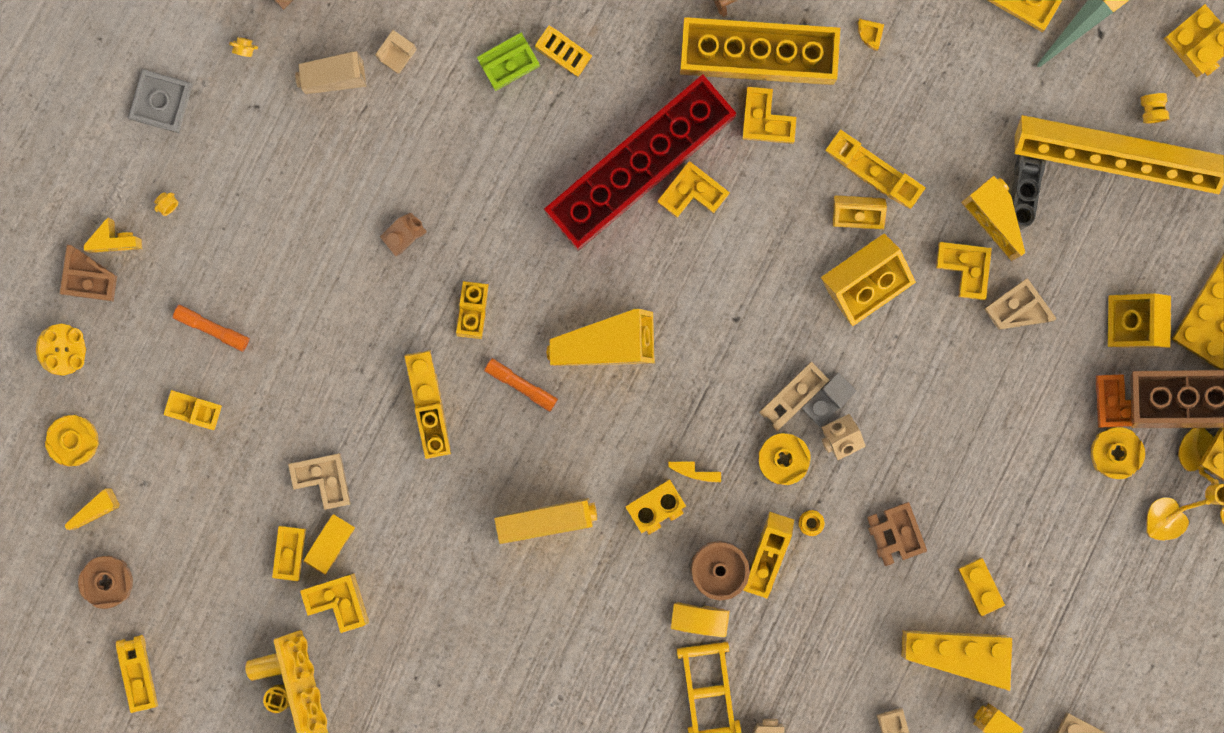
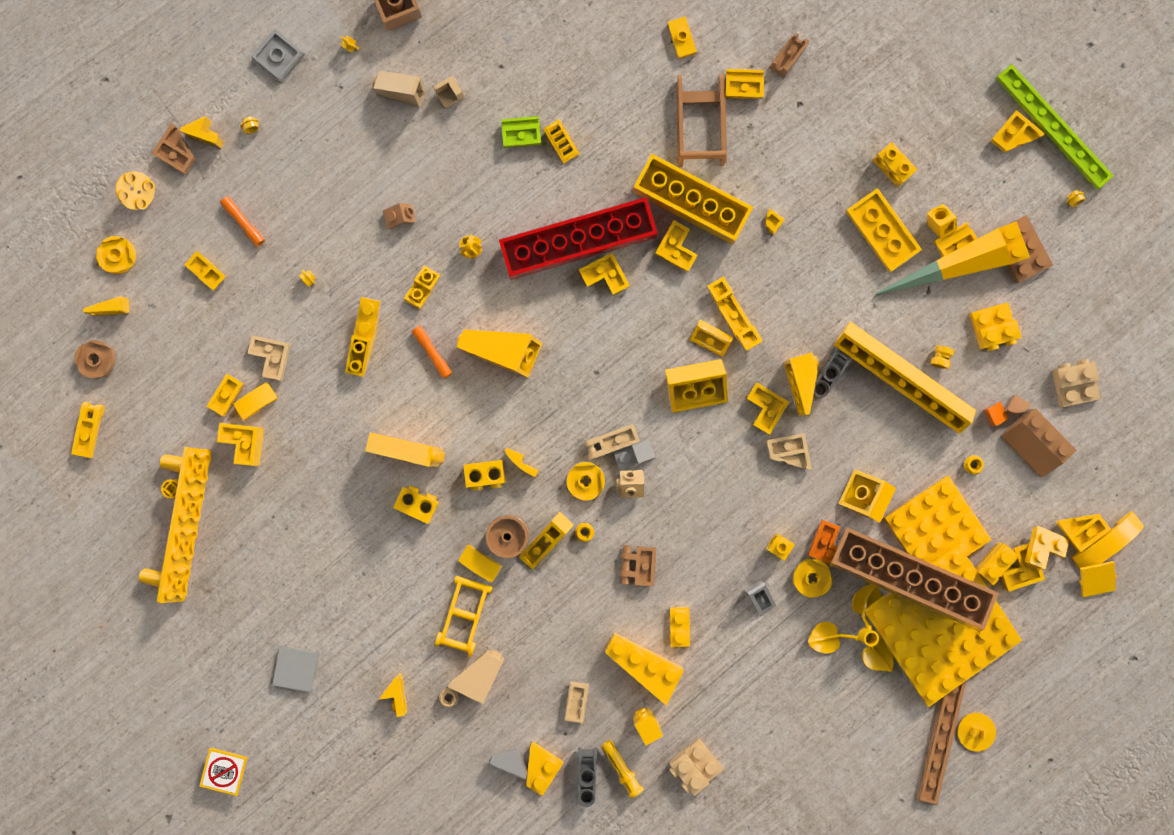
camera: 20 degrees right, 0 degrees up
(324, 362) = (307, 277): none -> yellow plate
(510, 232) = (470, 246): none -> yellow gear
(588, 589) = (415, 509): none -> yellow brick
(1060, 432) = (779, 546): none -> yellow brick
(1063, 505) = (760, 597): none -> light grey slope

